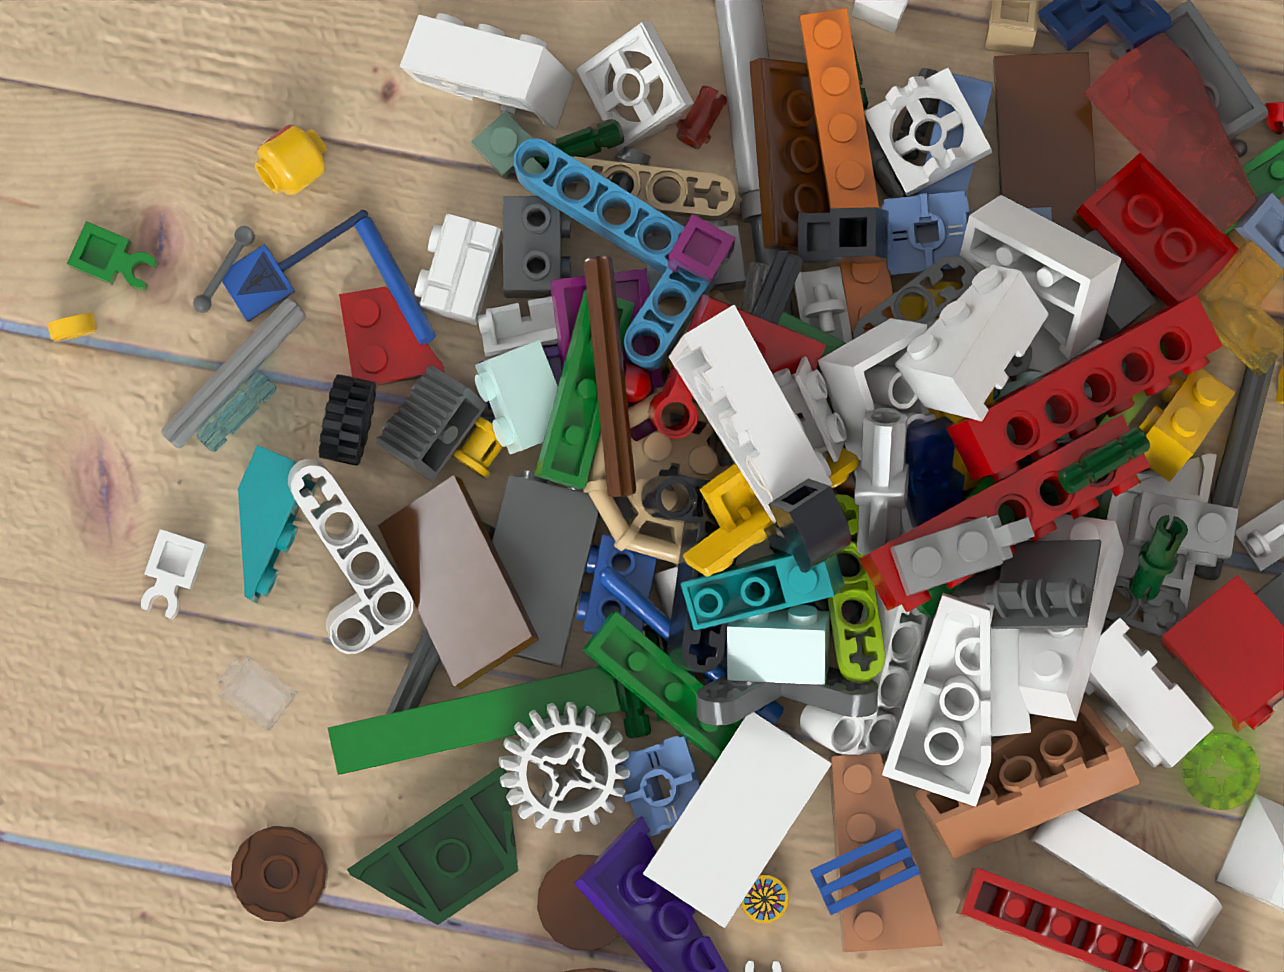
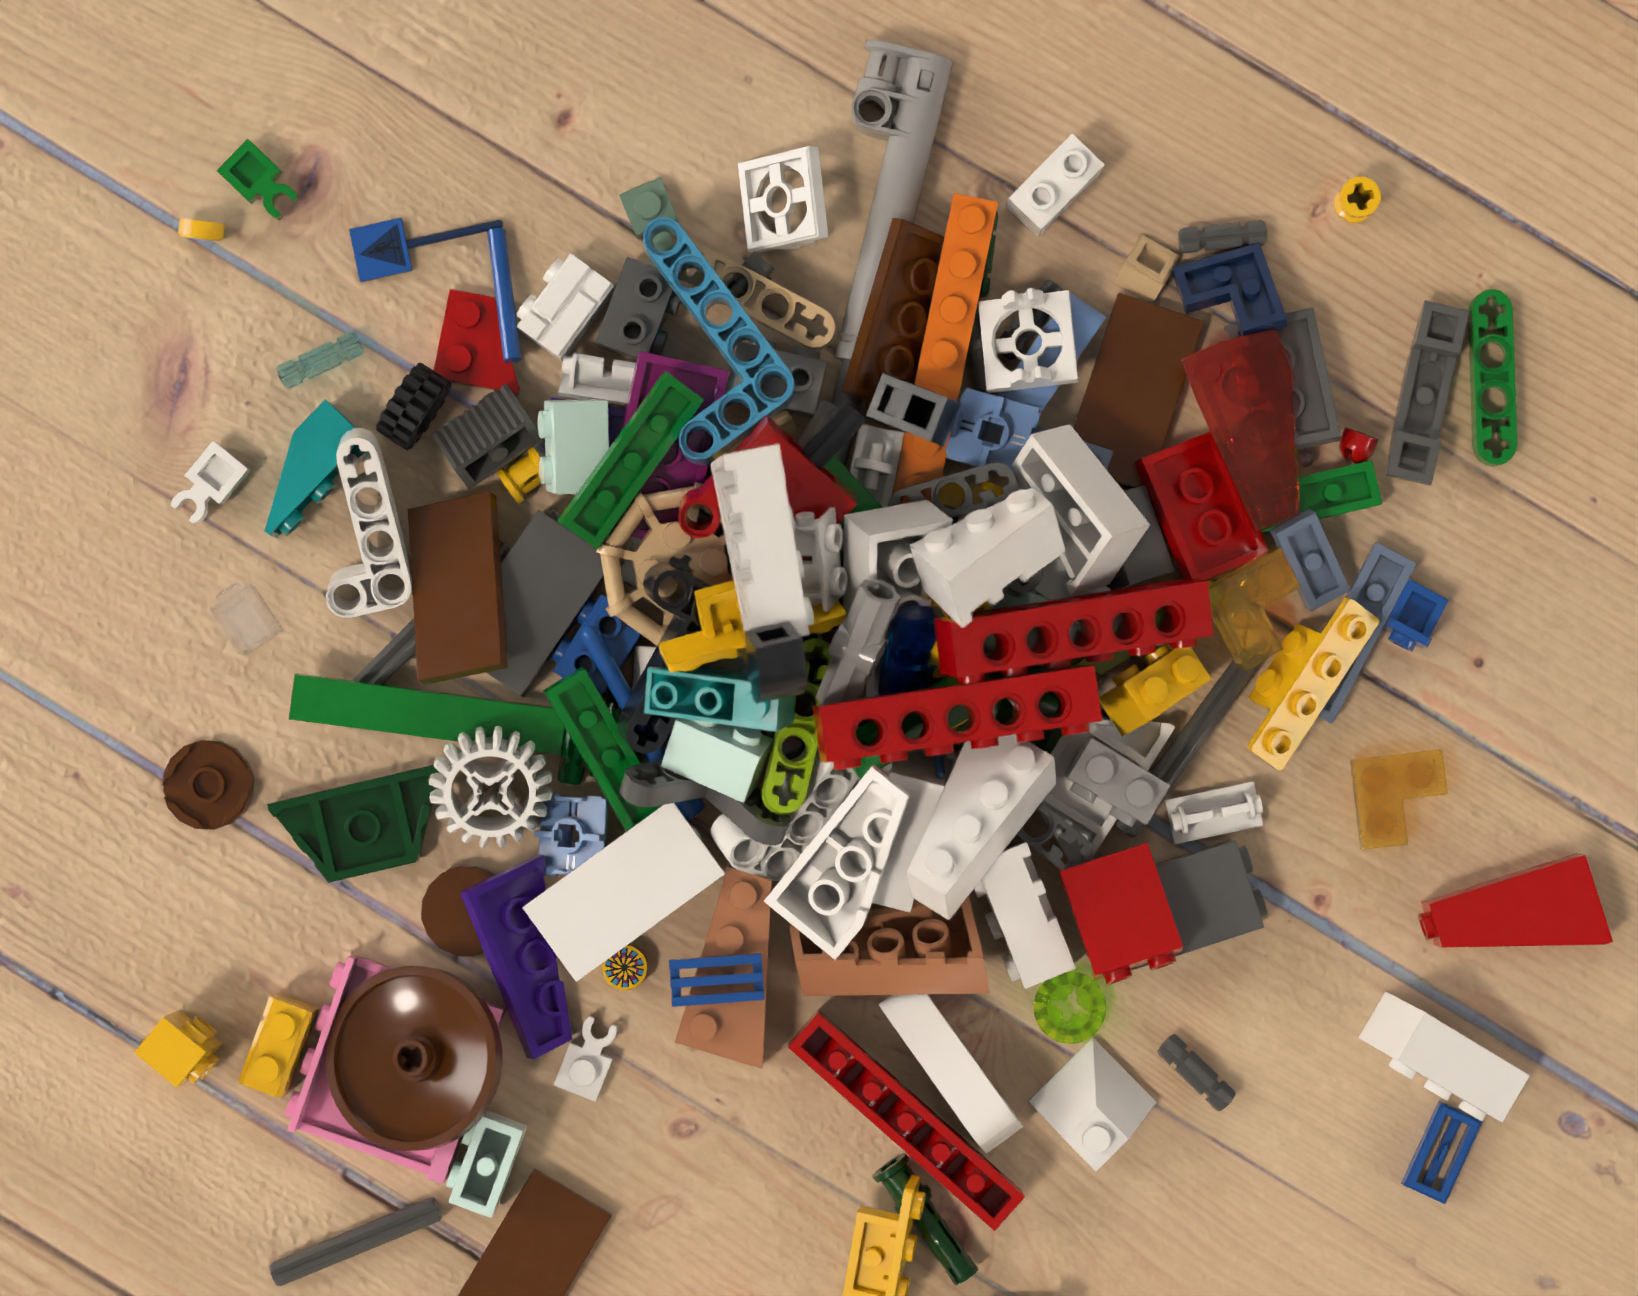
camera: 20 degrees right, 5 degrees up
(233, 373) = (330, 324): light grey axle -> none
(244, 237) = (384, 204): dark grey hinge -> none
(291, 160) = (451, 151): yellow head -> none
(488, 66) = (658, 133): white wedge -> none
(588, 141) = (720, 234): dark green axle -> none
(610, 376) = (656, 458): reddish brown axle -> none
(637, 382) = (675, 470): red hinge -> none
(701, 117) = (833, 250): clear red pin -> none
(701, 249) = (776, 377): magenta panel -> none
(957, 552) = (897, 735): light grey hinge -> none
(1045, 585) = (966, 791): dark grey hinge -> none
(1103, 460) = (1060, 701): dark green axle -> none
(1158, 557) = (1081, 802): dark green pin -> none

